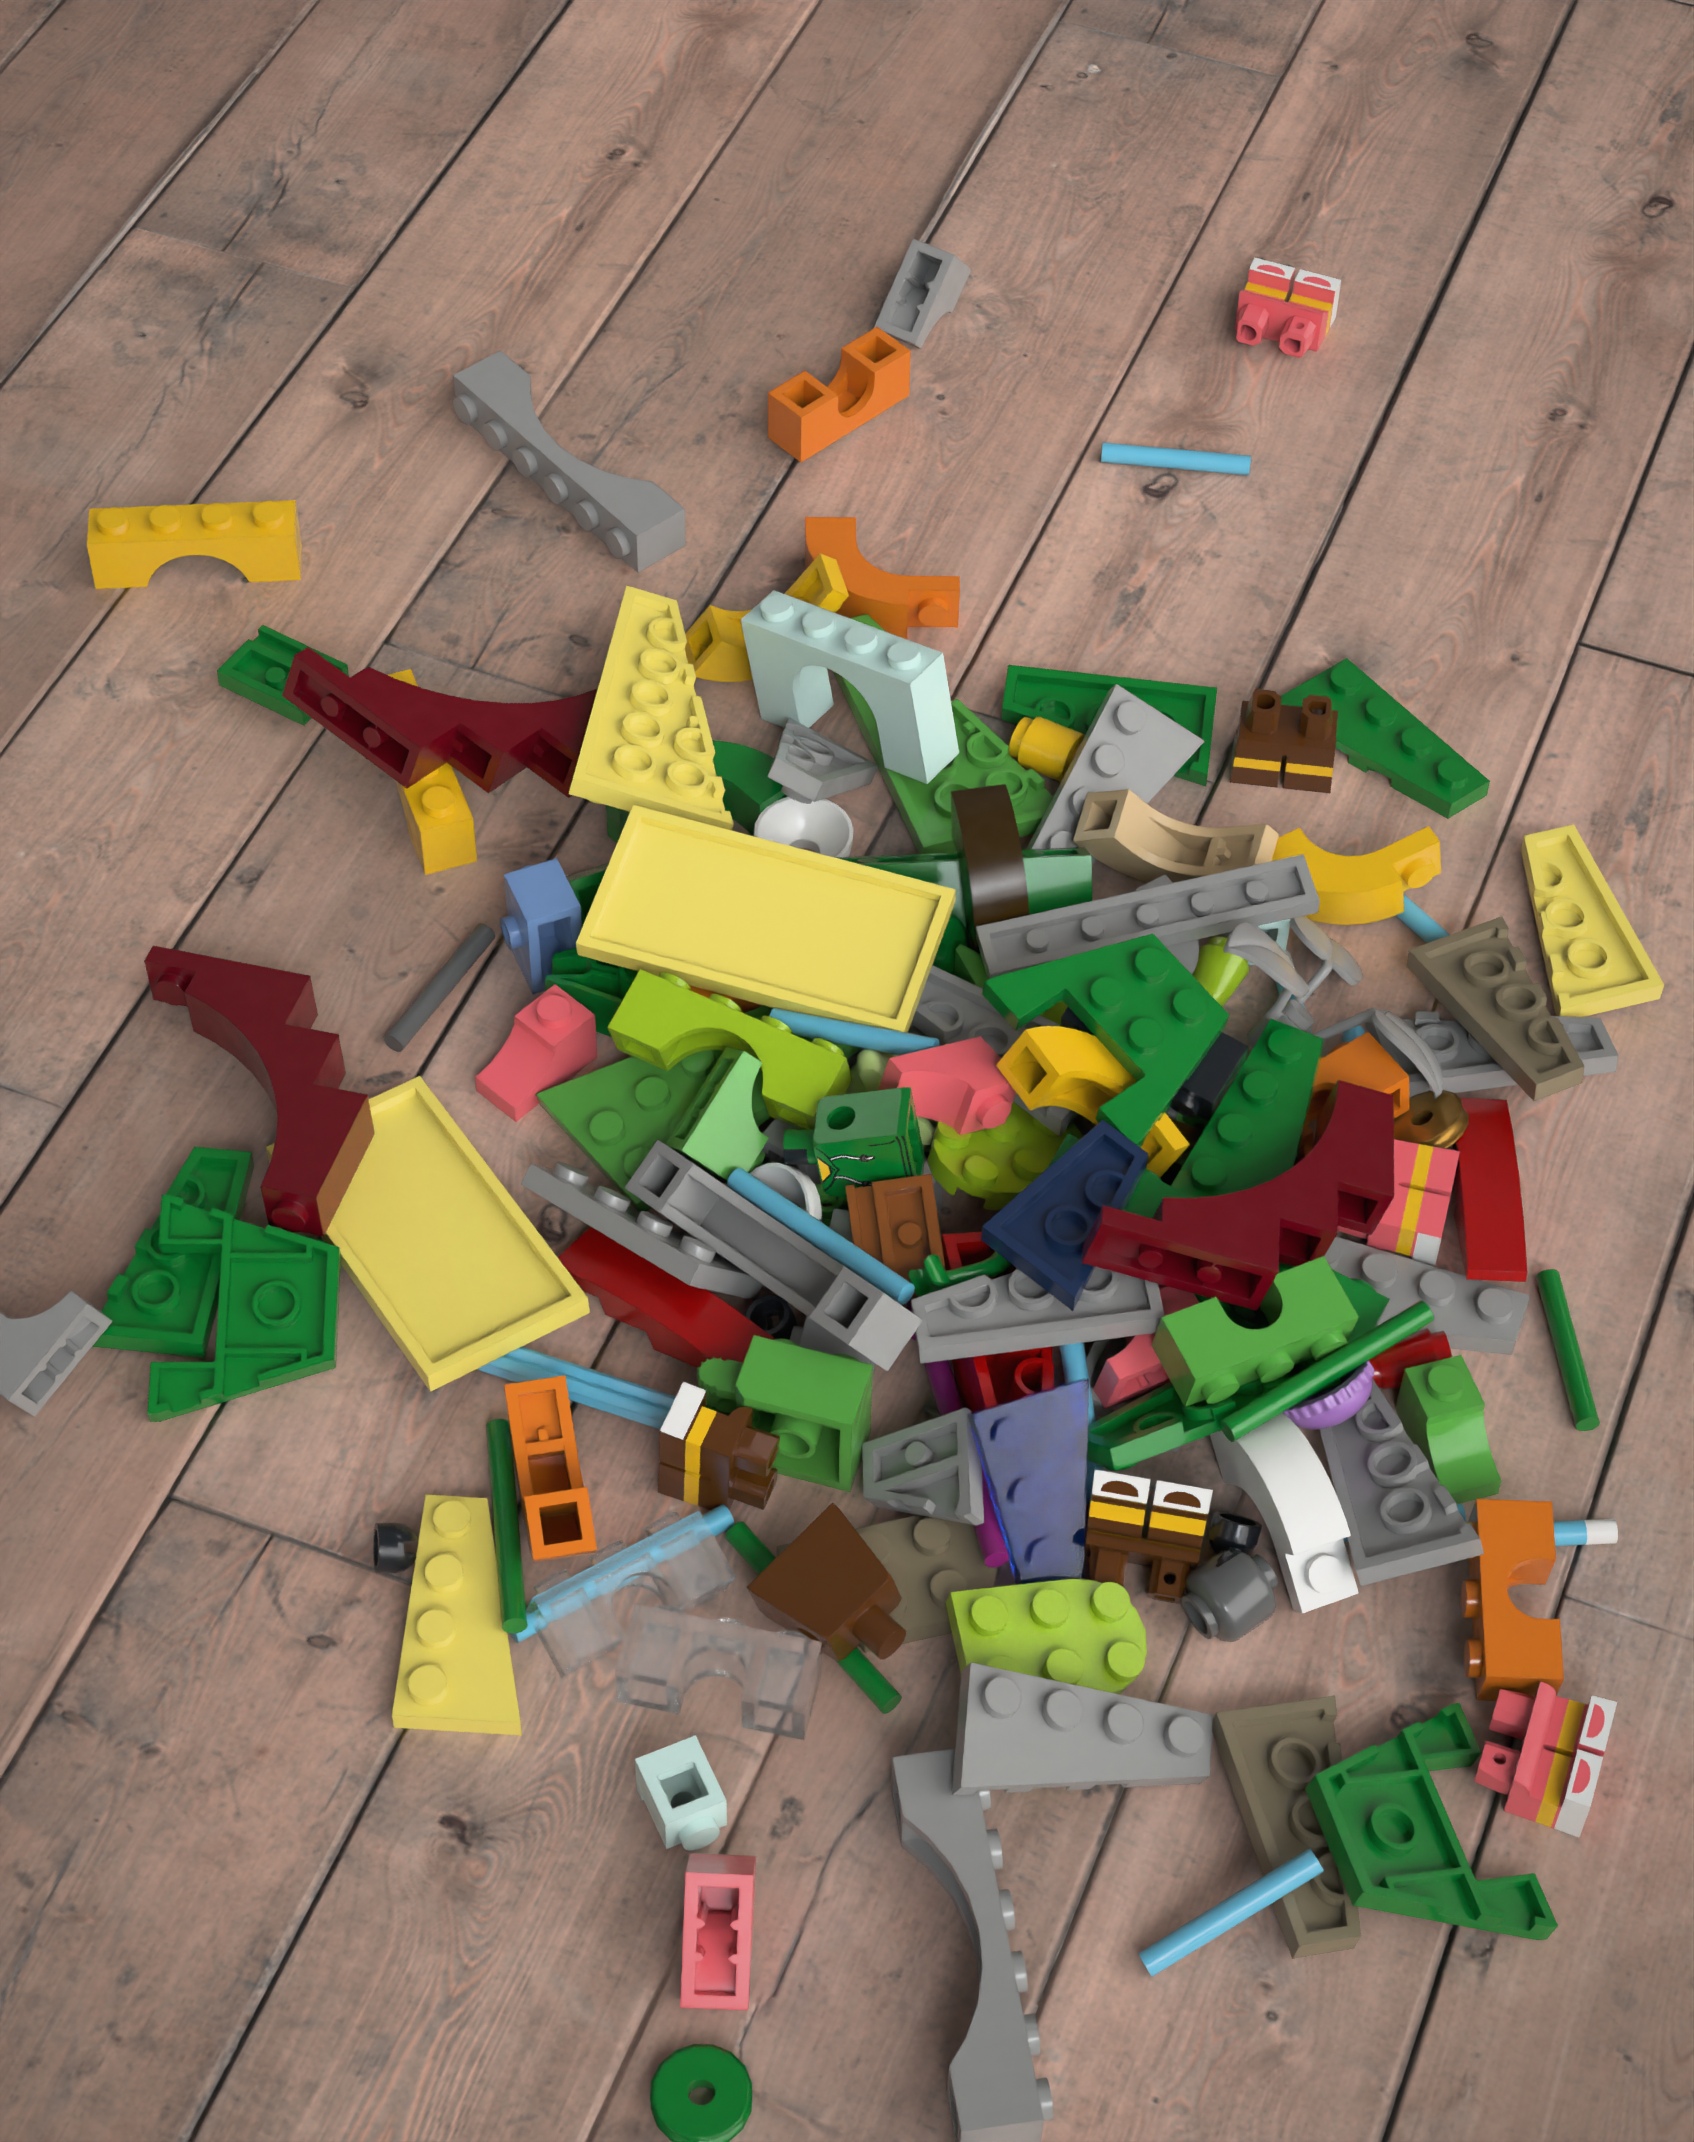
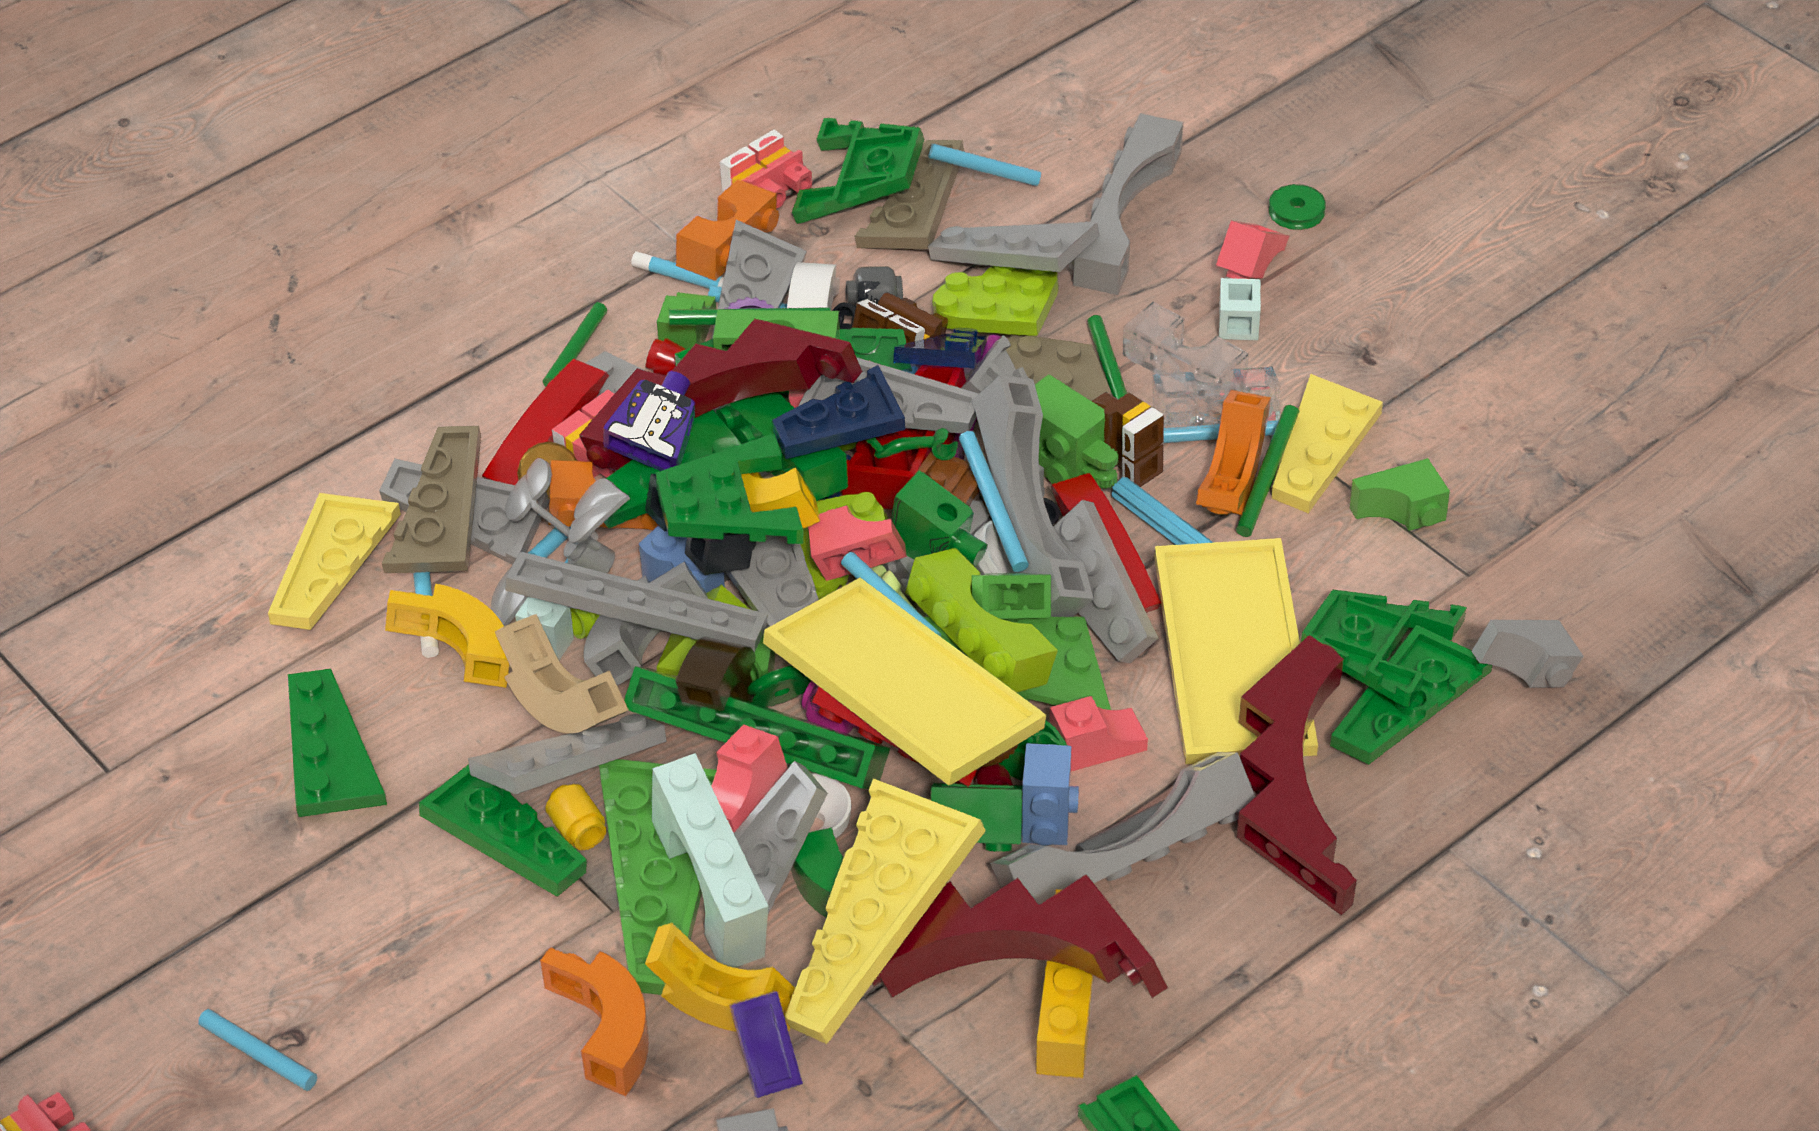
camera: 150 degrees left, 5 degrees down
(293, 1553) = (1405, 493): none -> bright green arch
(385, 987) = (1200, 797): none -> light grey arch
(389, 1547) = (1339, 483): black hinge -> none
(698, 592) = (766, 1044): none -> dark purple tile
(832, 1590) = (1104, 348): reddish brown torso -> none
(885, 810) = (746, 772): none -> coral arch
(1276, 730) = (410, 742): reddish brown hips -> none
(1289, 1090) = (653, 423): none -> torso

